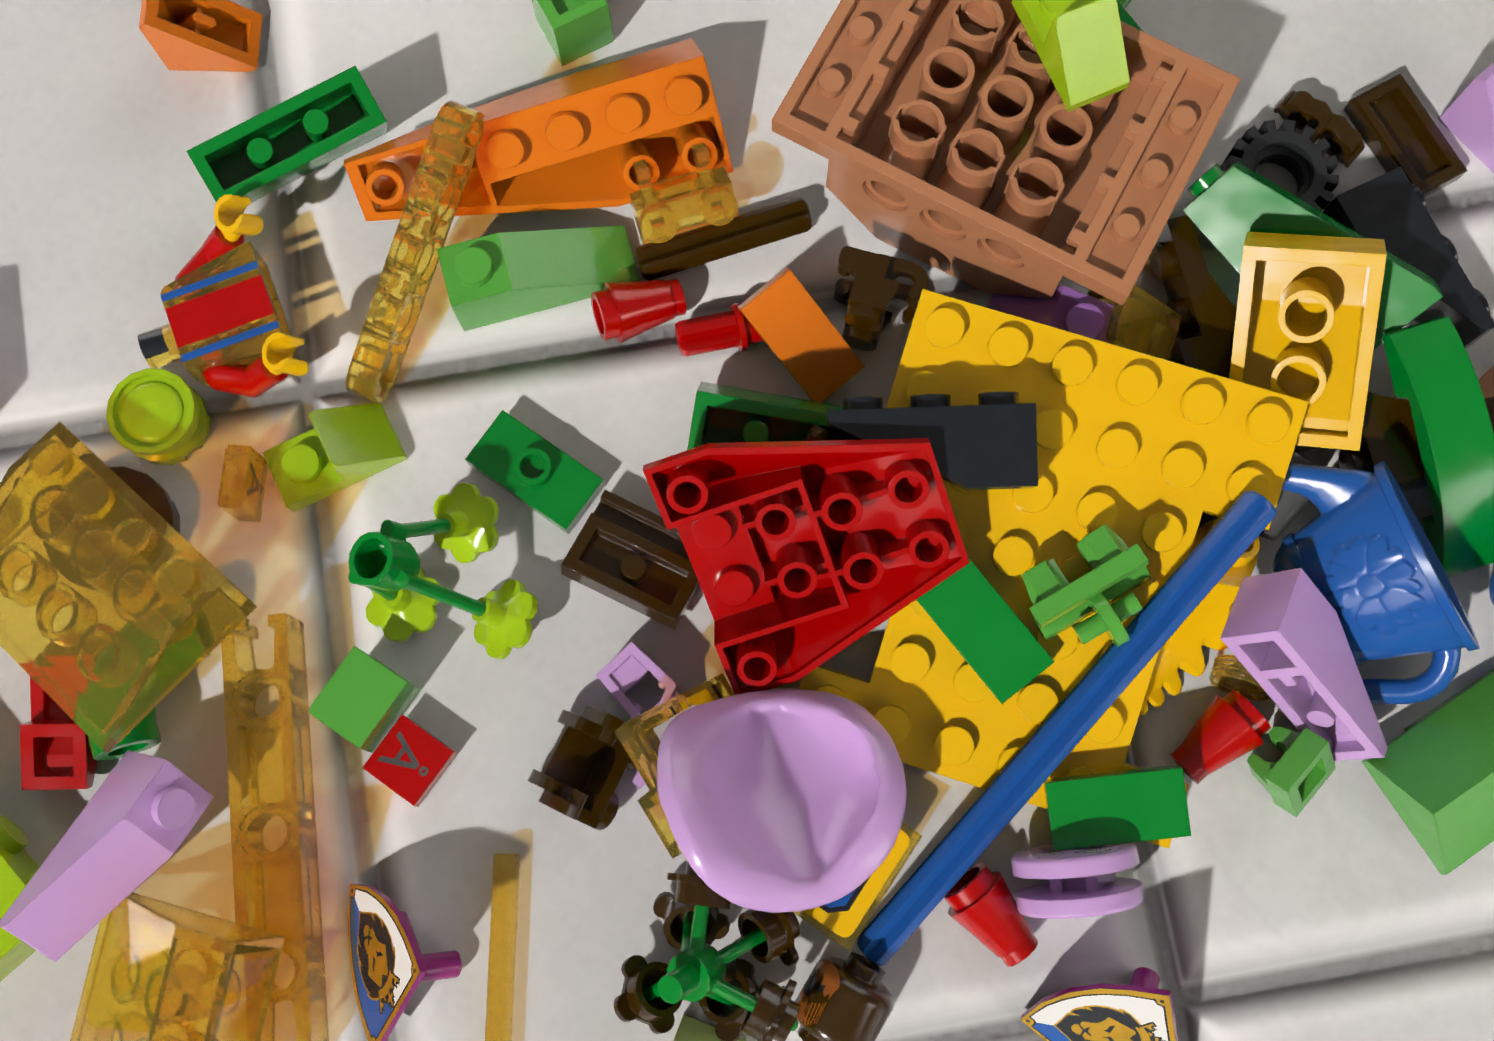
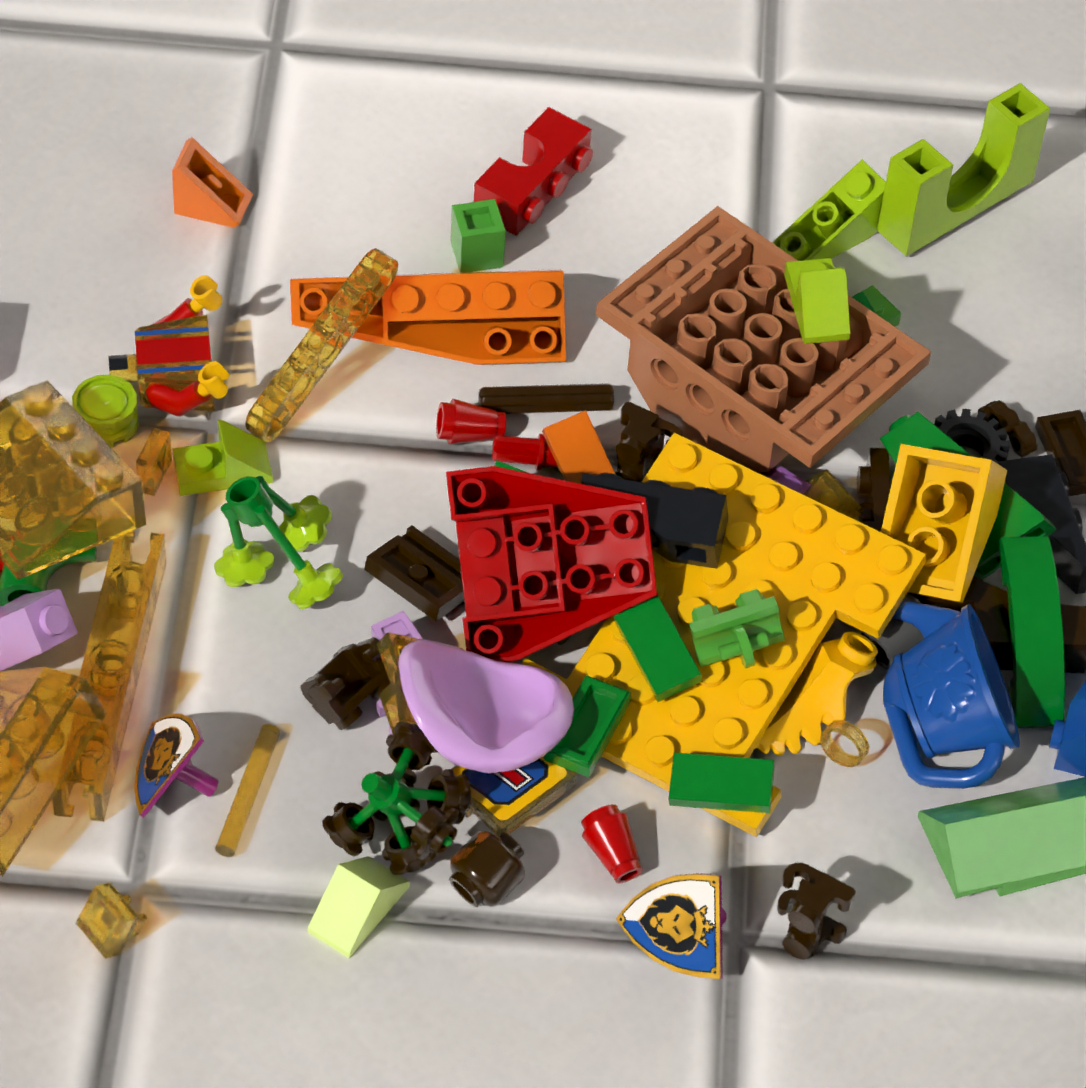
camera: 10 degrees right, 25 degrees down
(290, 138) = (255, 262): green brick -> none
(363, 700) = (204, 605): bright green panel -> none
(409, 760) = (219, 657): red tile -> none
(532, 271) = (396, 383): bright green slope -> none
(535, 471) = (363, 506): green plate -> none
(682, 201) = (522, 365): clear yellow piece -> none
(927, 741) = (595, 719): none -> green tile
(1066, 727) = (696, 723): blue axle -> none
(1079, 881) = (681, 822): lavender head -> none
(1221, 735) = (817, 776): red cone -> none
(1278, 964) = (810, 903): none -> dark brown piece
(1298, 772) = (867, 808): bright green tile -> none
(1303, 661) = (886, 731): lavender slope -> none

